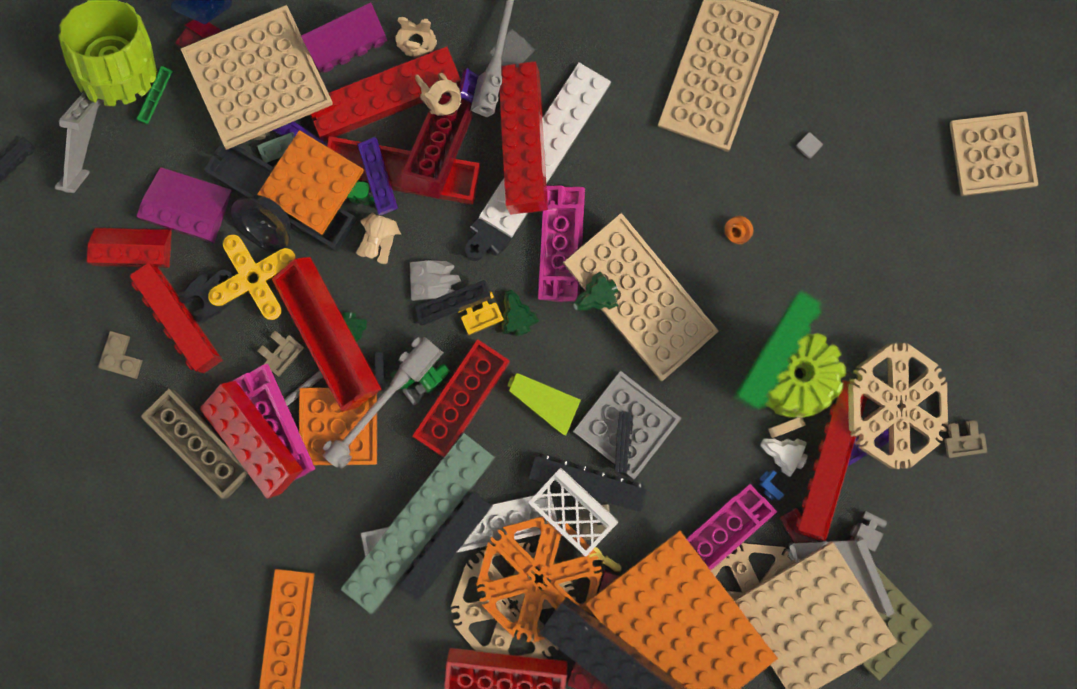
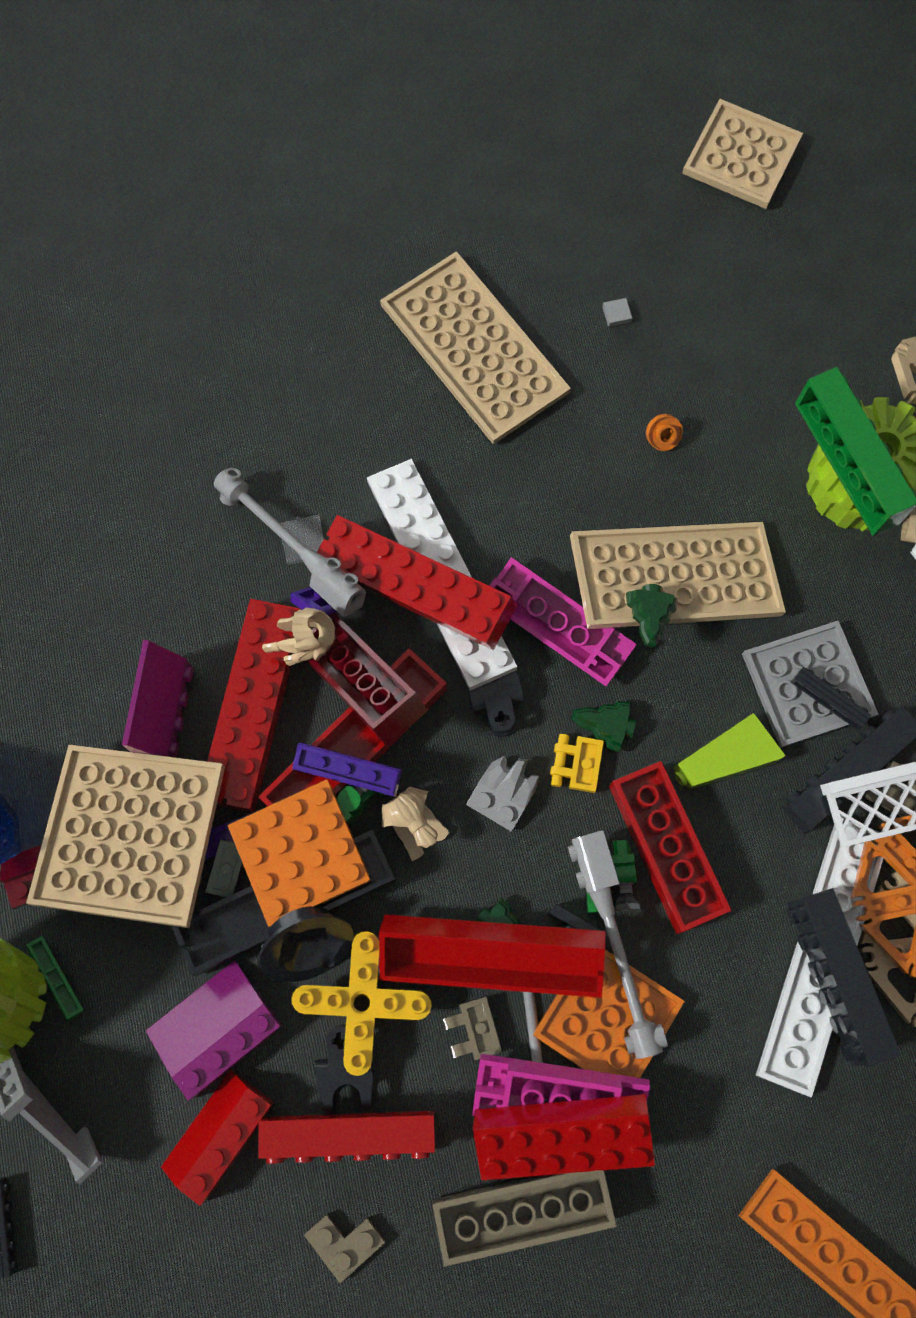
camera: 60 degrees left, 10 degrees down
(413, 48) = (224, 637): tan piece -> none
(417, 523) = (794, 1000): sand green brick -> none
(453, 302) = (548, 784): black plate -> none

